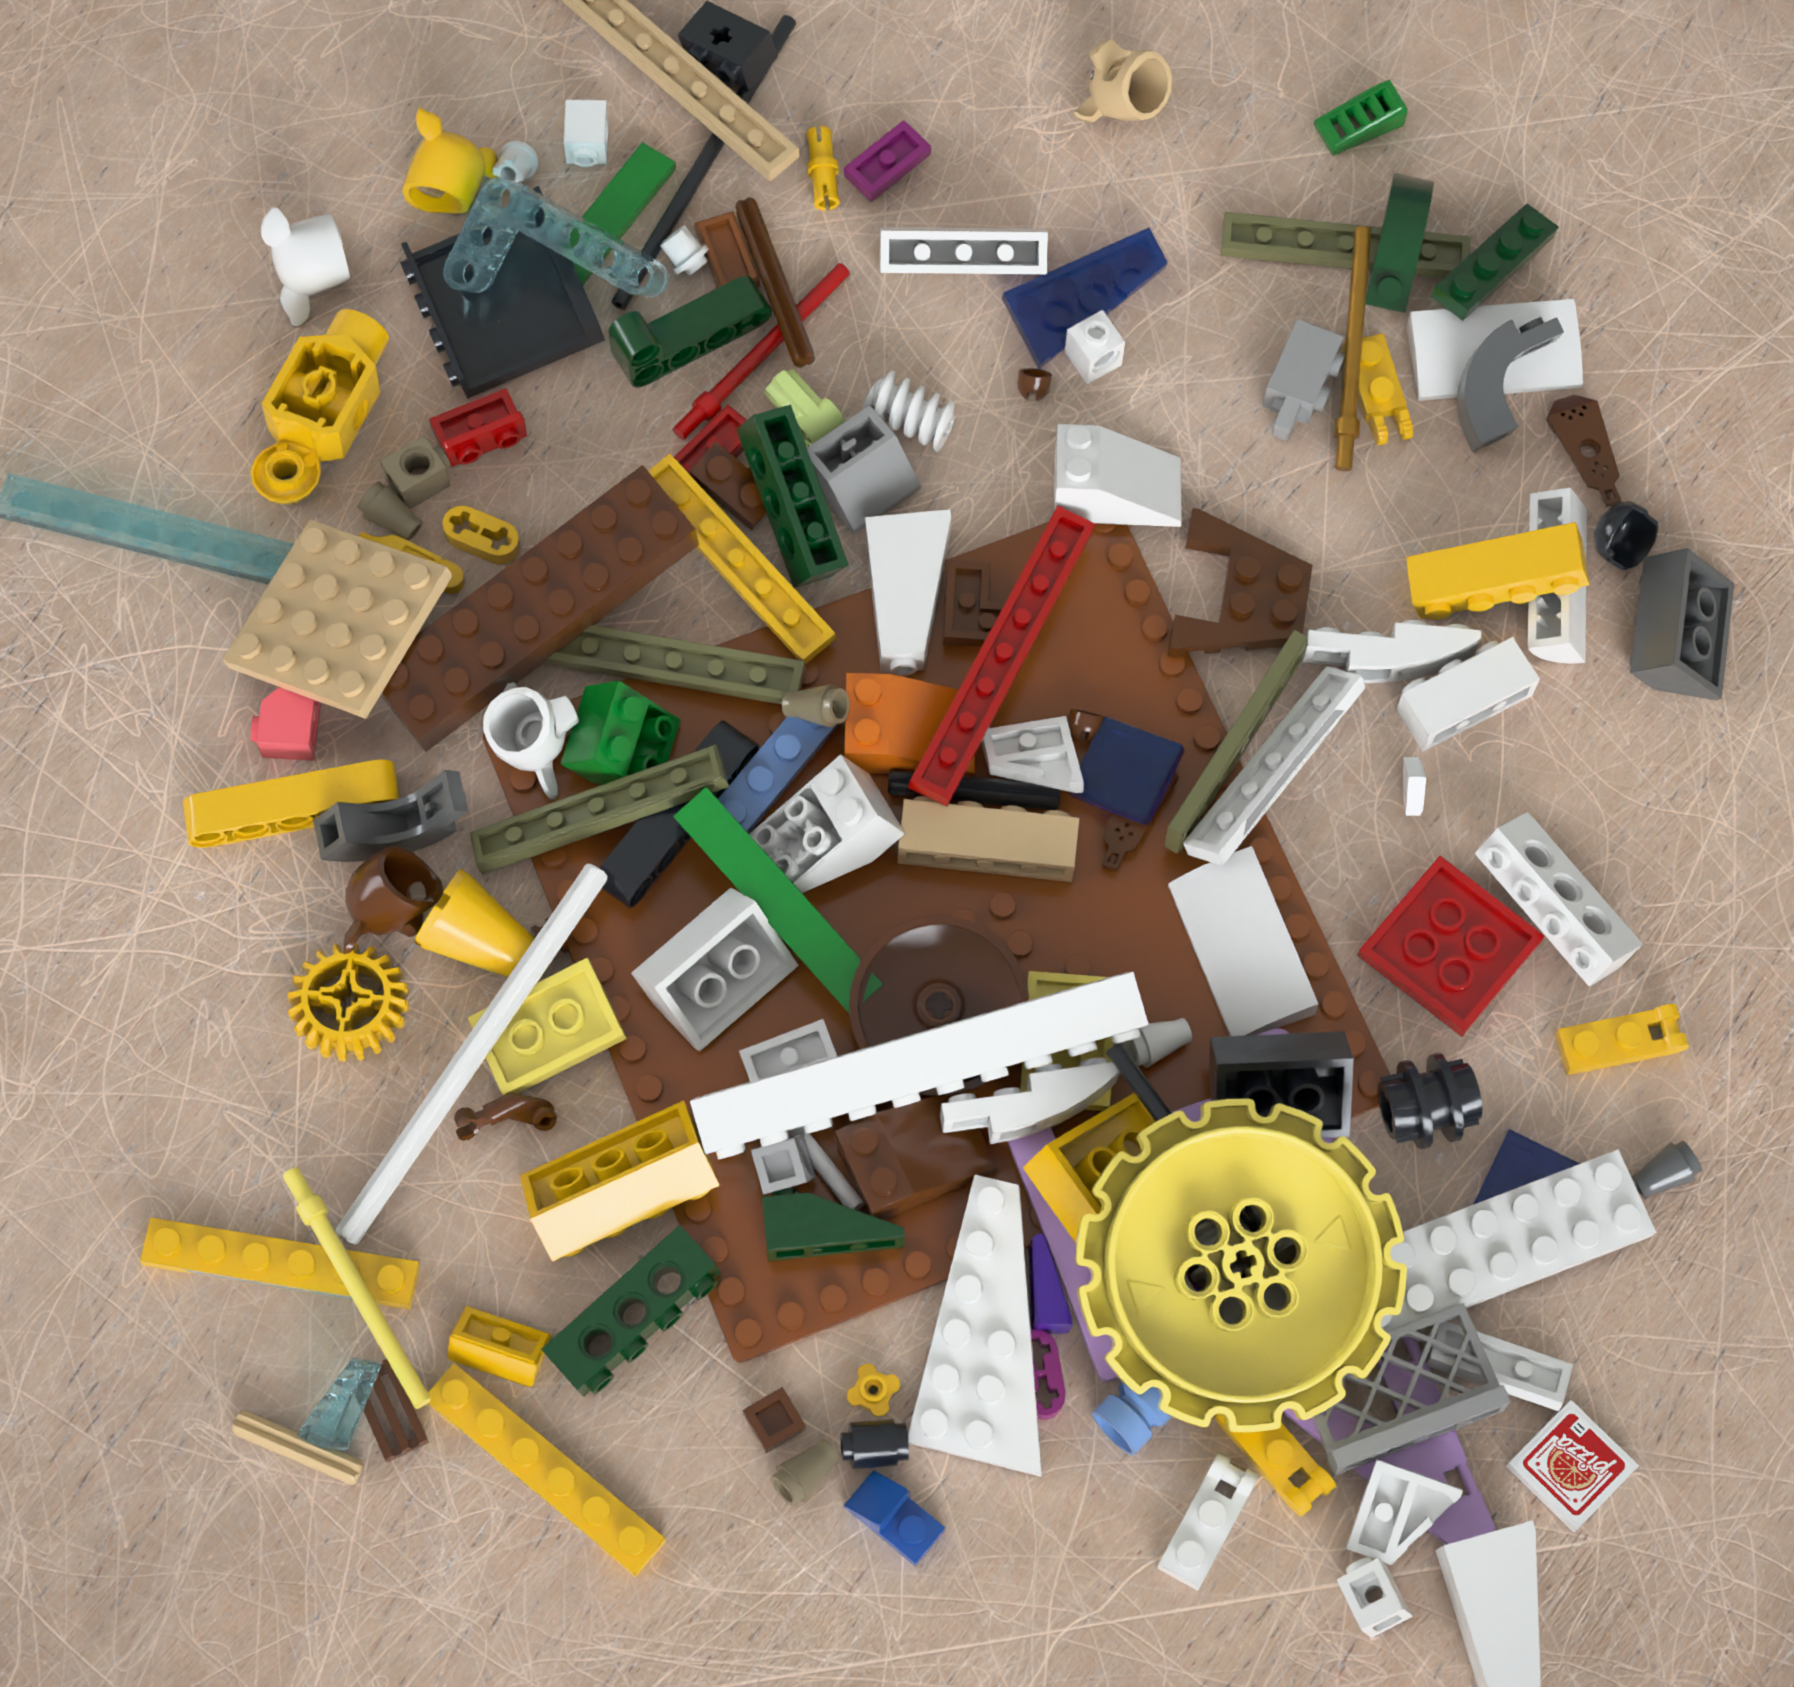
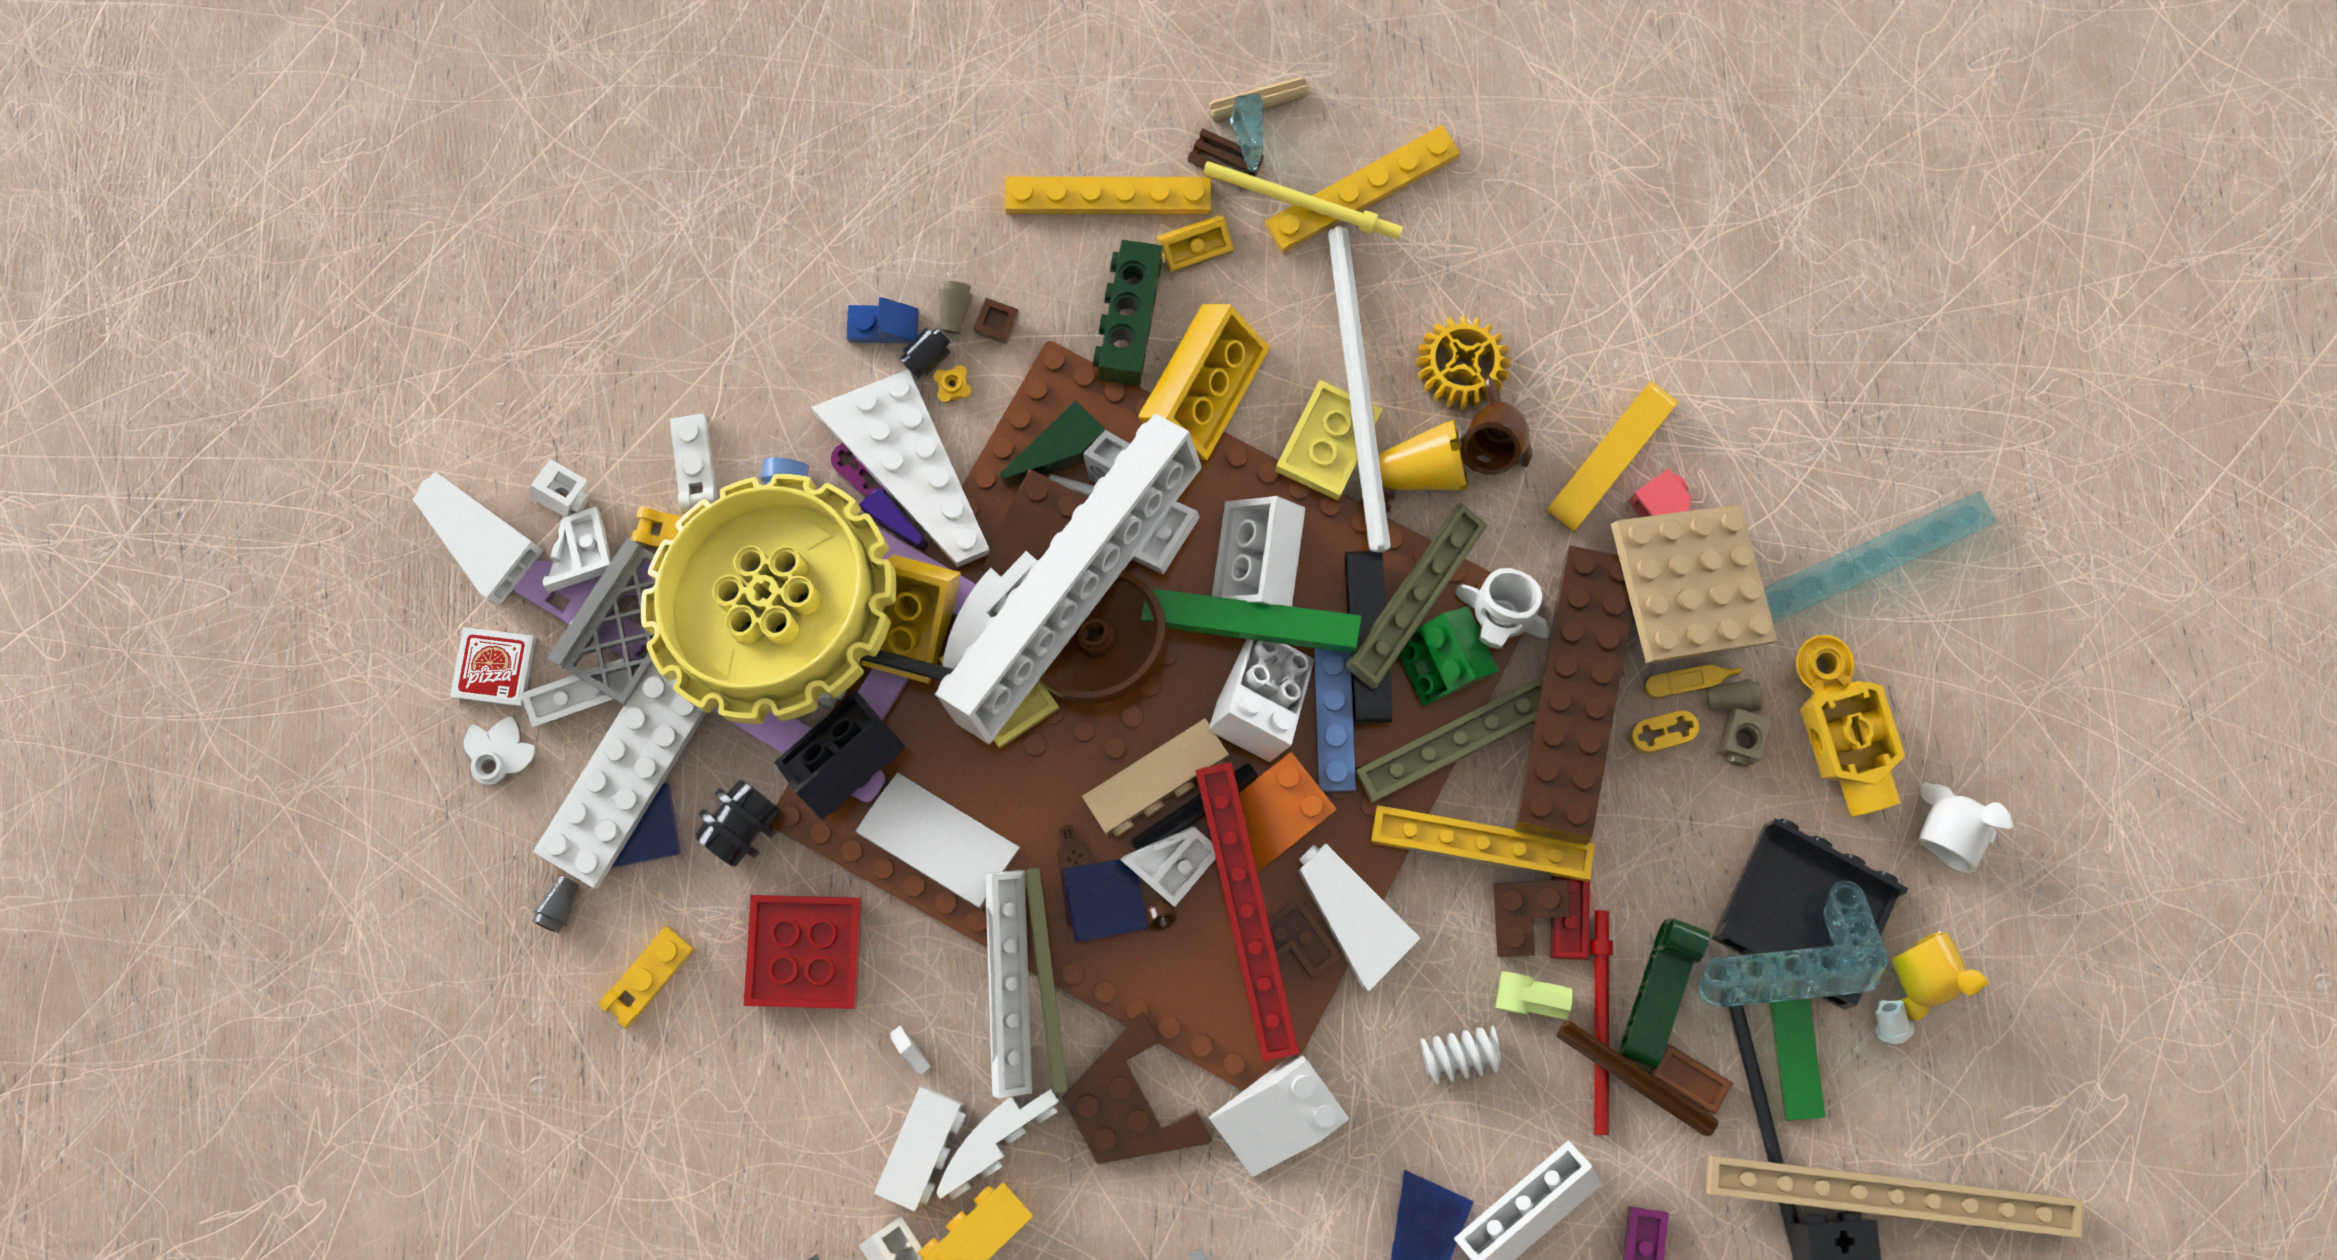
camera: 145 degrees right, 10 degrees up
(412, 822) = (1540, 485): dark grey arch -> none
(479, 428) = (1734, 803): red bracket -> none
(510, 1106) = (1291, 390): reddish brown arm -> none
(586, 132) = (1868, 1089): white brick -> none
(684, 251) = (1718, 1052): white hose -> none
(792, 496) = (1481, 912): dark green brick -> none
(819, 705) = (1334, 769): dark tan cone -> none
(822, 168) = (1684, 1204): yellow pin -> none
(862, 469) = (1455, 978): light grey slope -> none
(1034, 381) = (1400, 1158): reddish brown hinge -> none
(1094, 347) = (1376, 1211): white brick -> none
(1158, 1041) = (941, 733): white cone -> none
(1558, 898) = (734, 1045): white brick -> none
(1620, 1379) = (497, 745): none -> white plate

